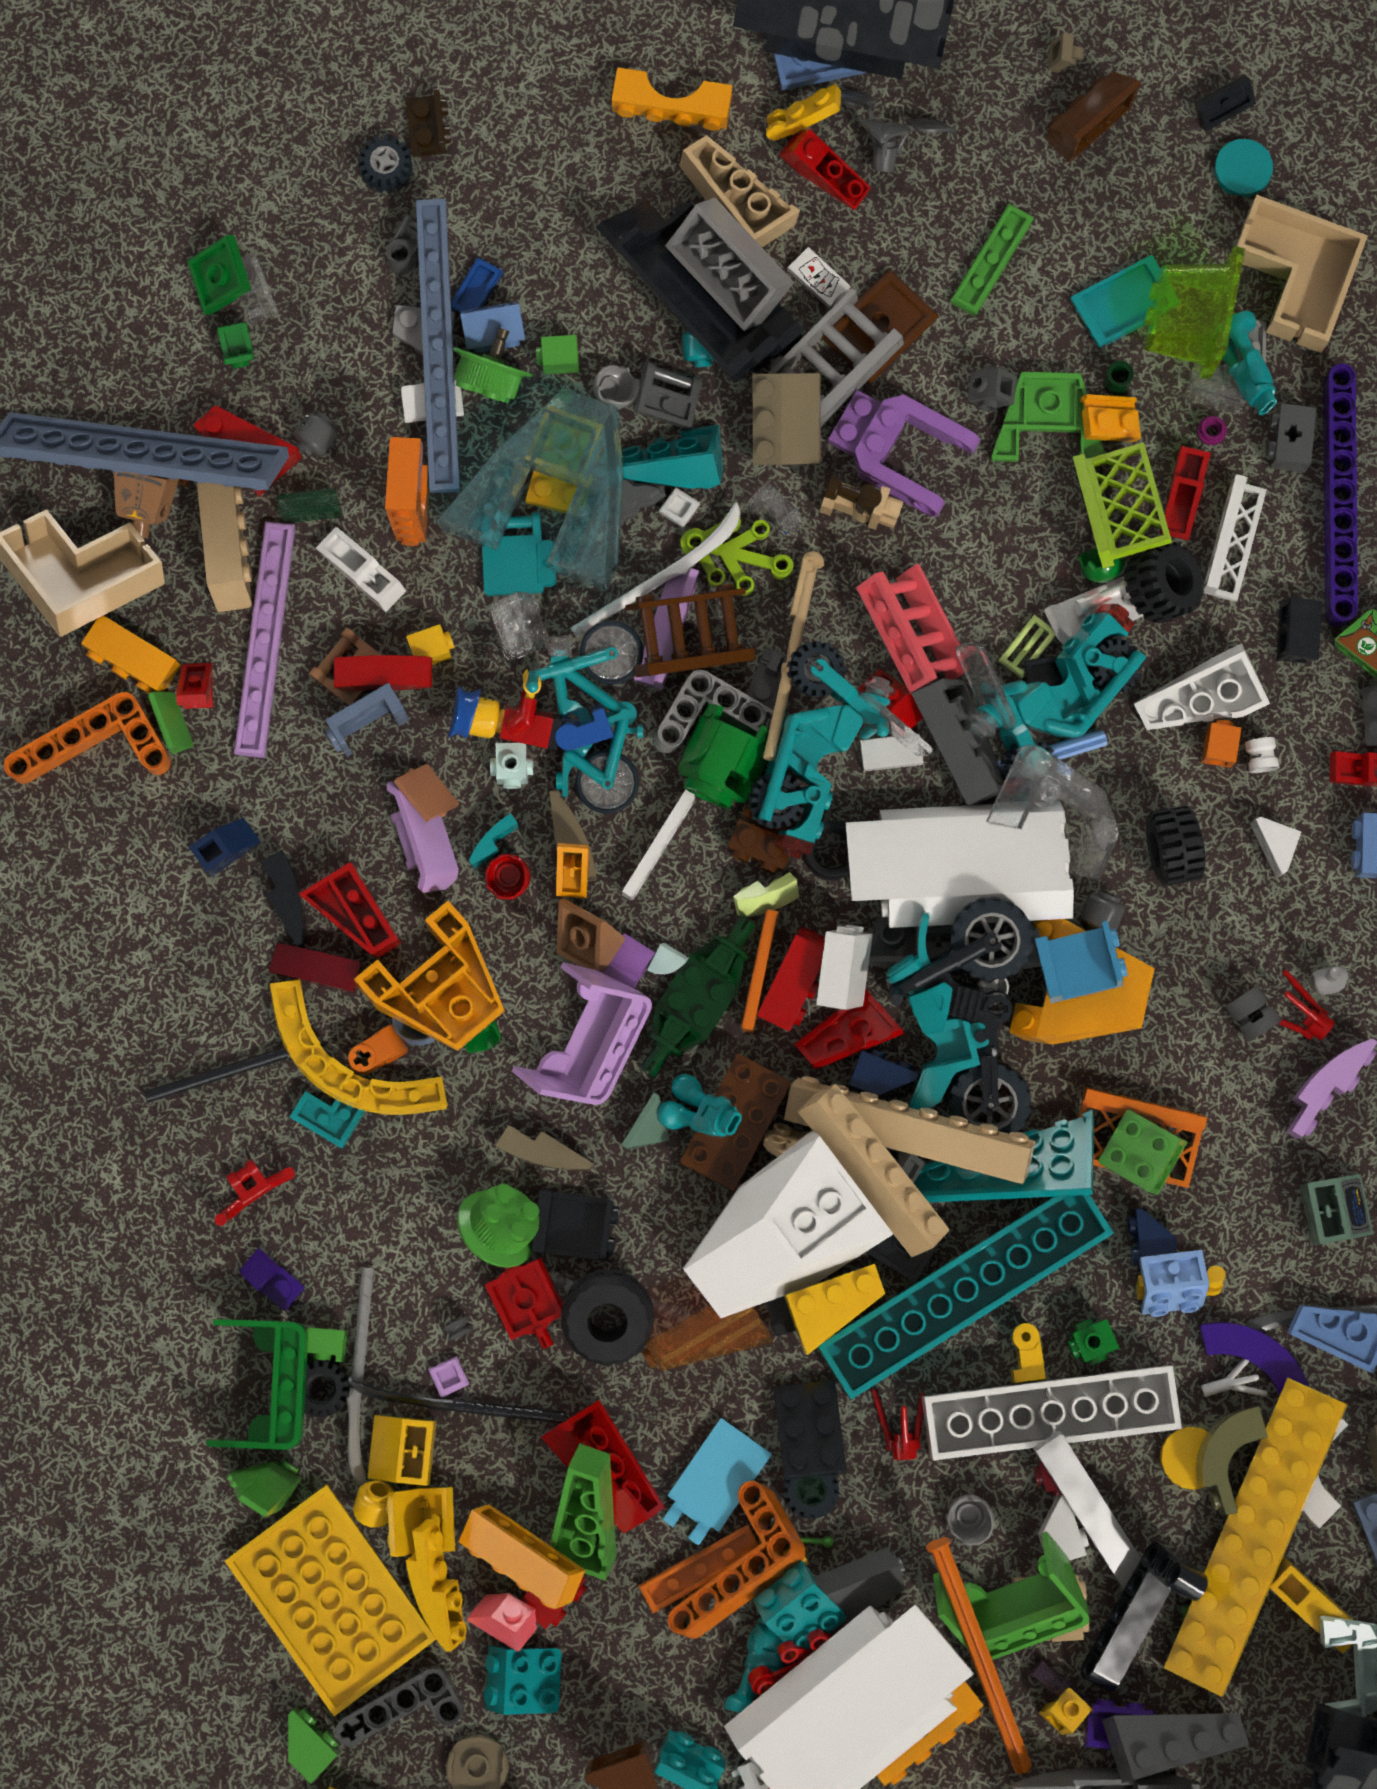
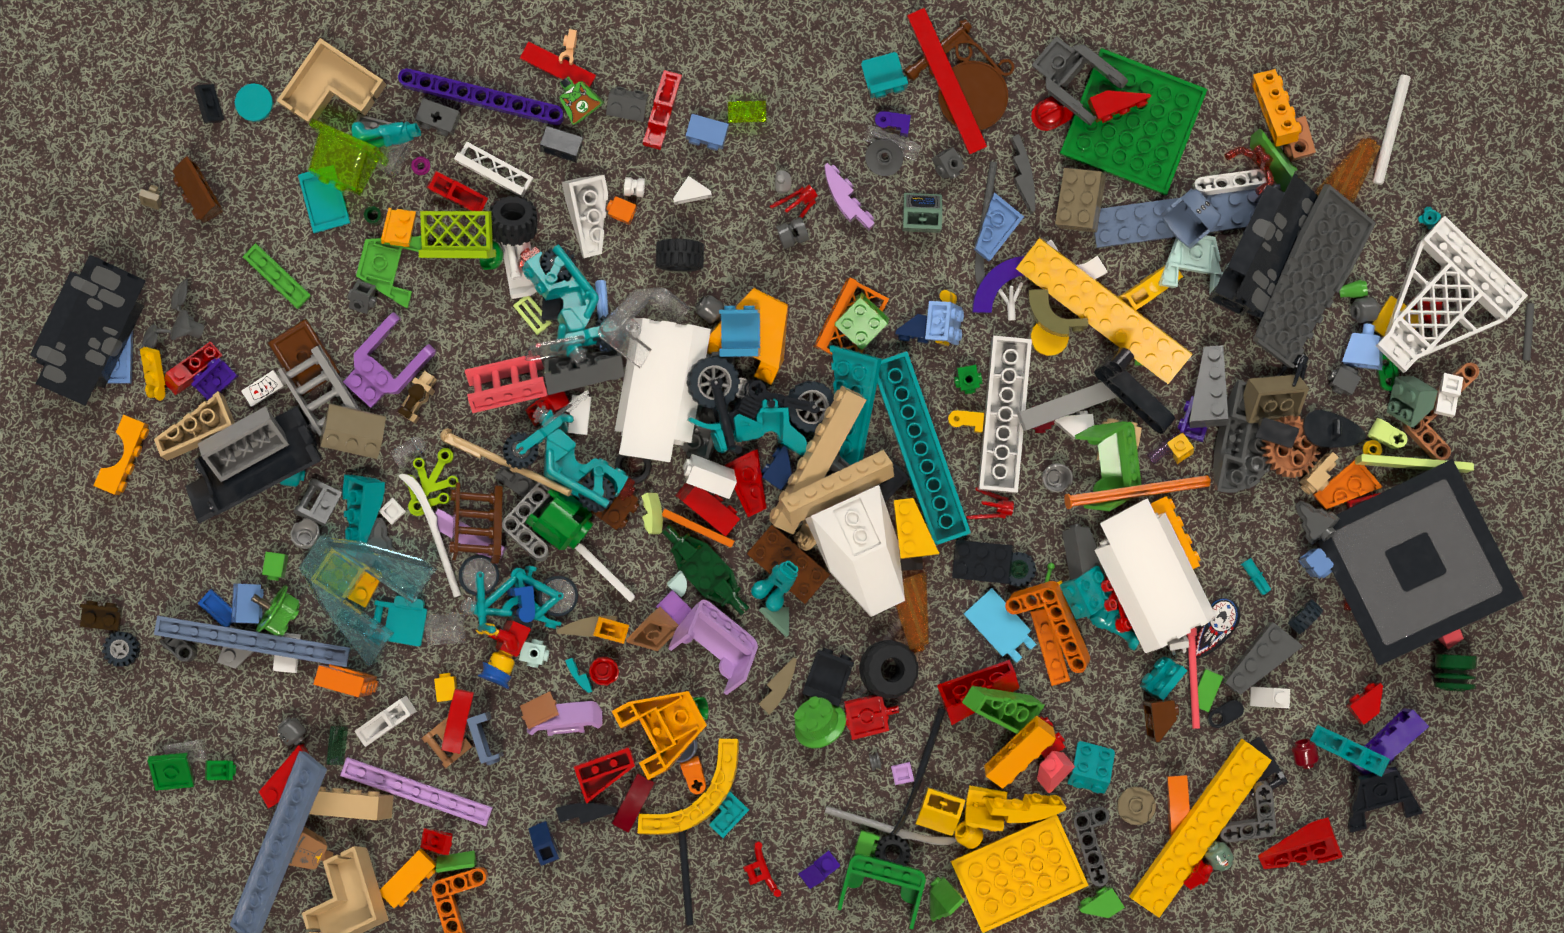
camera: 75 degrees left, 5 degrees up
(818, 204) = (214, 378): none -> dark purple bracket

